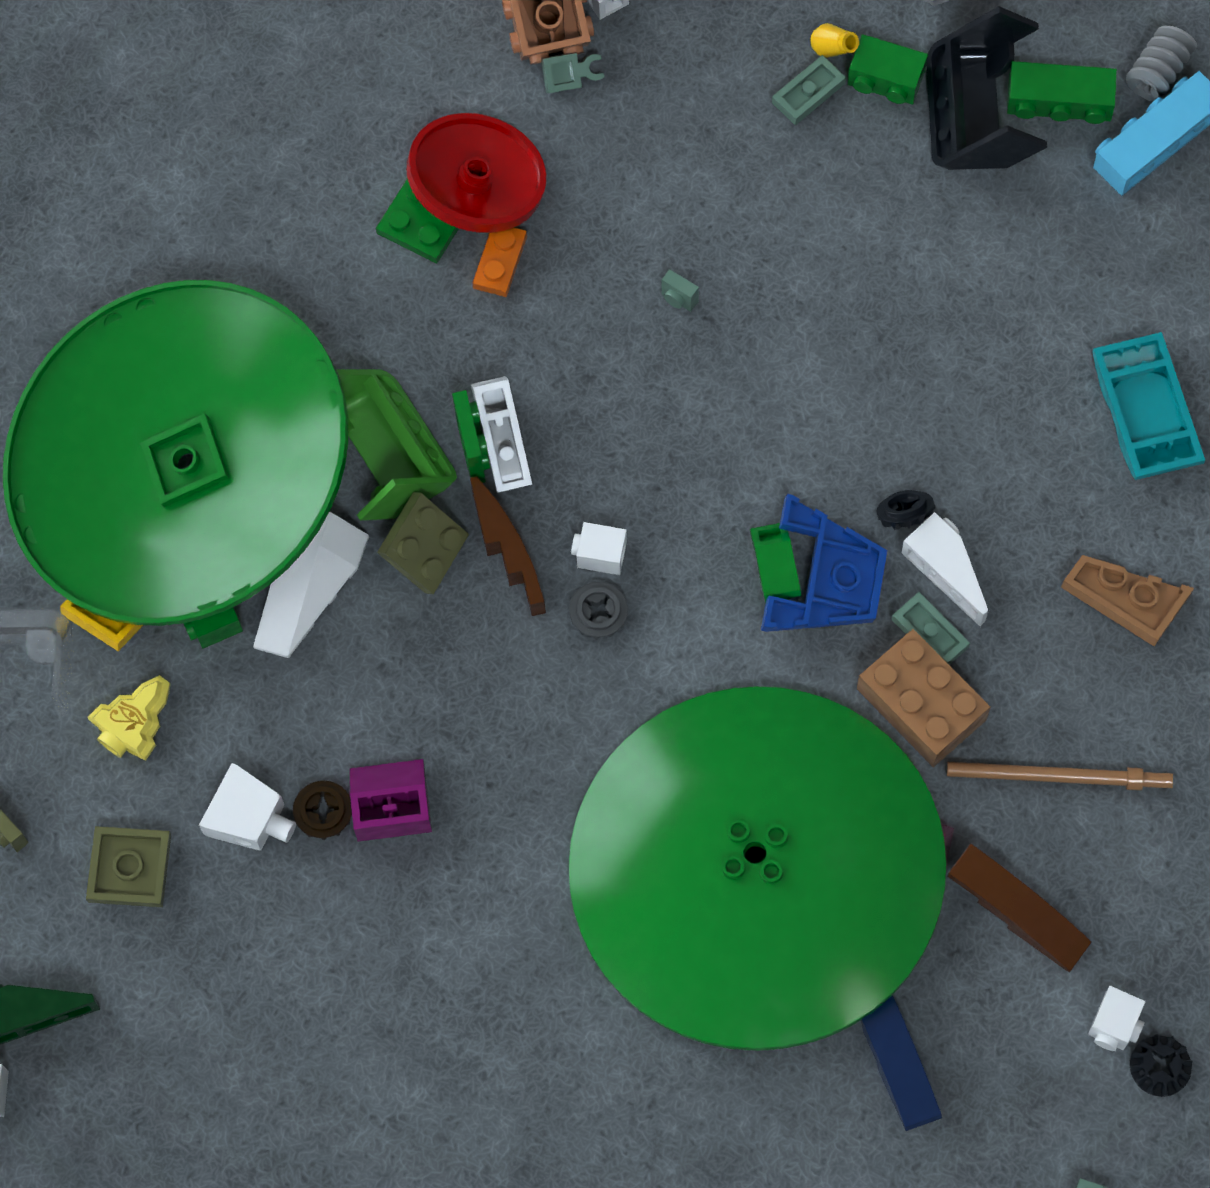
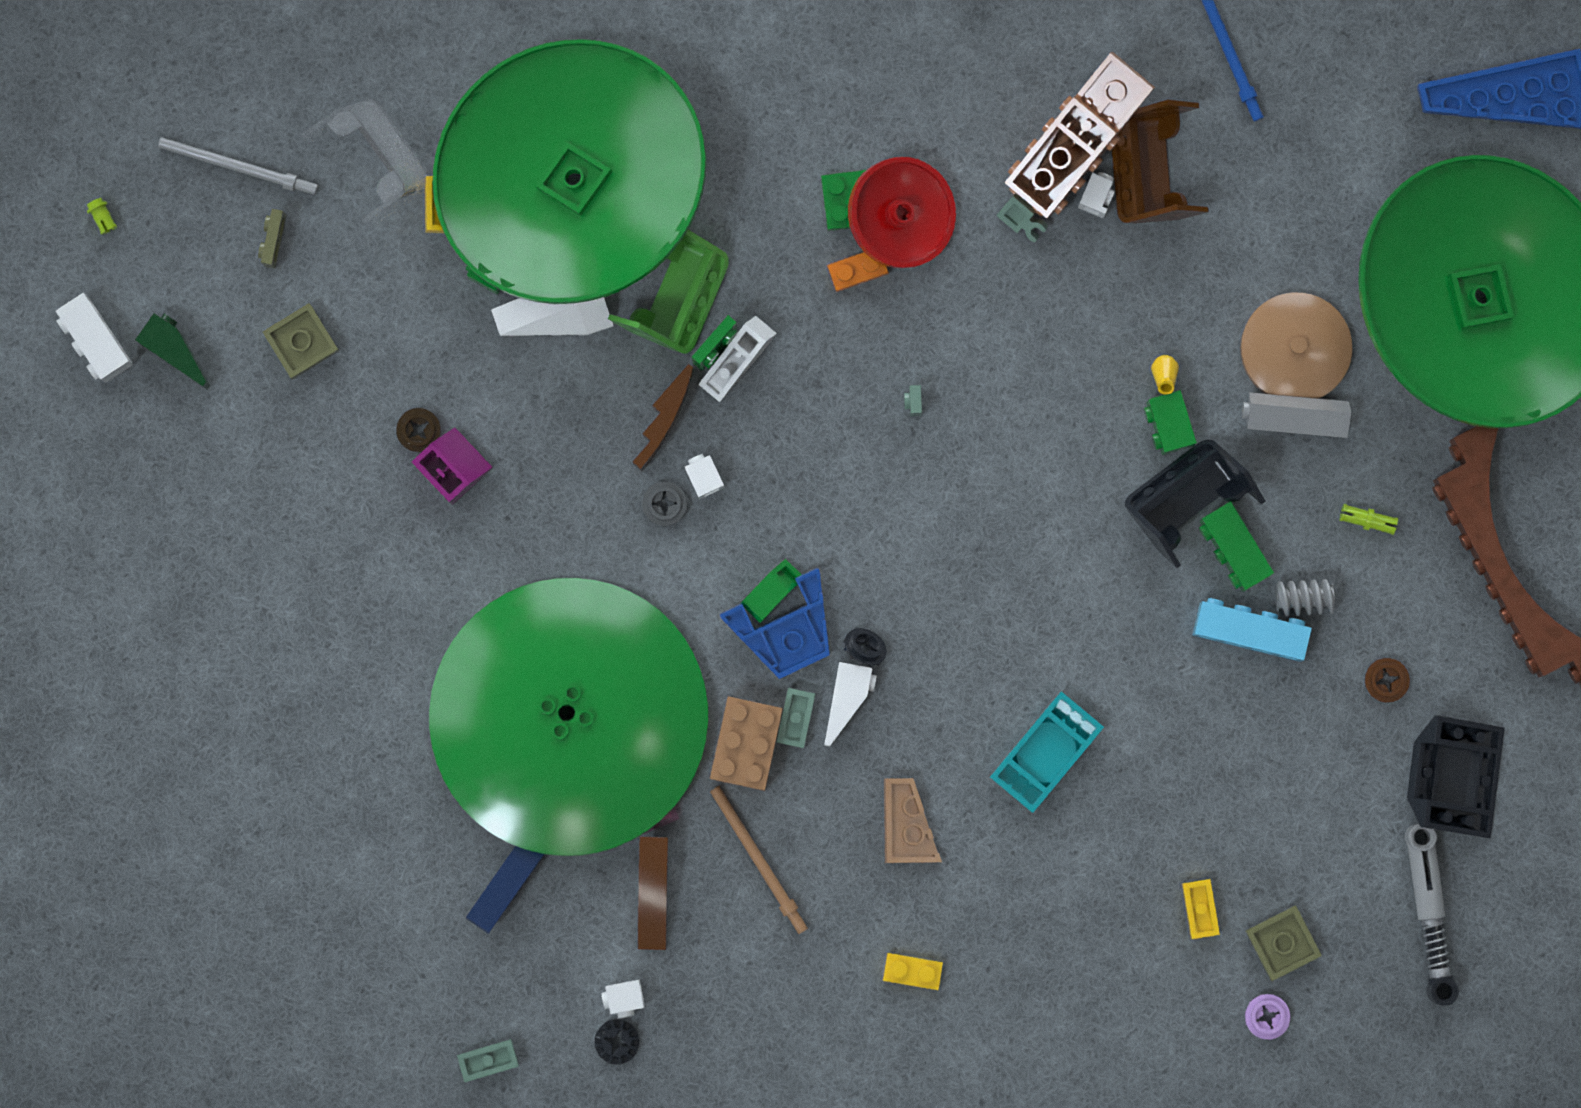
camera: 55 degrees right, 15 degrees up
(132, 719) = (391, 272): light yellow rock -> none
(246, 812) = (383, 386): white torso -> none
(423, 543) = (626, 366): olive plate -> none
(808, 90) = (1120, 381): sand green plate -> none

